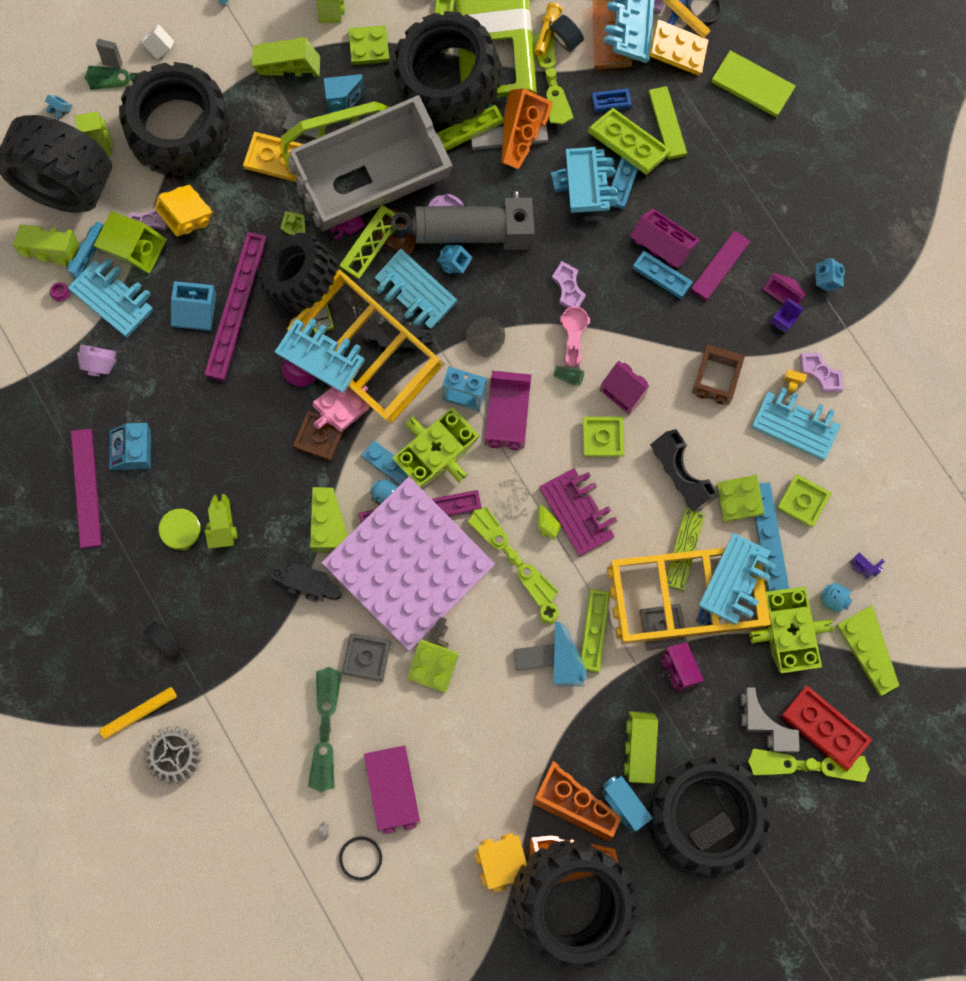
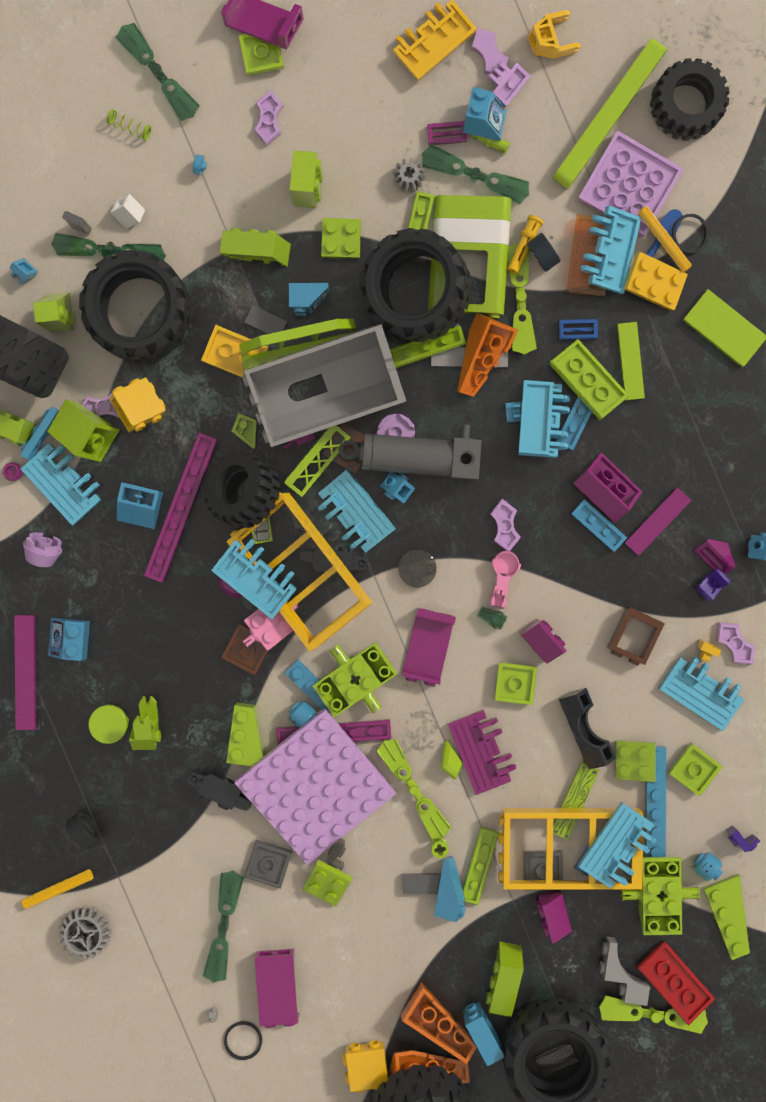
camera: 10 degrees right, 15 degrees up
(462, 391) = (395, 631): dark azure window -> none

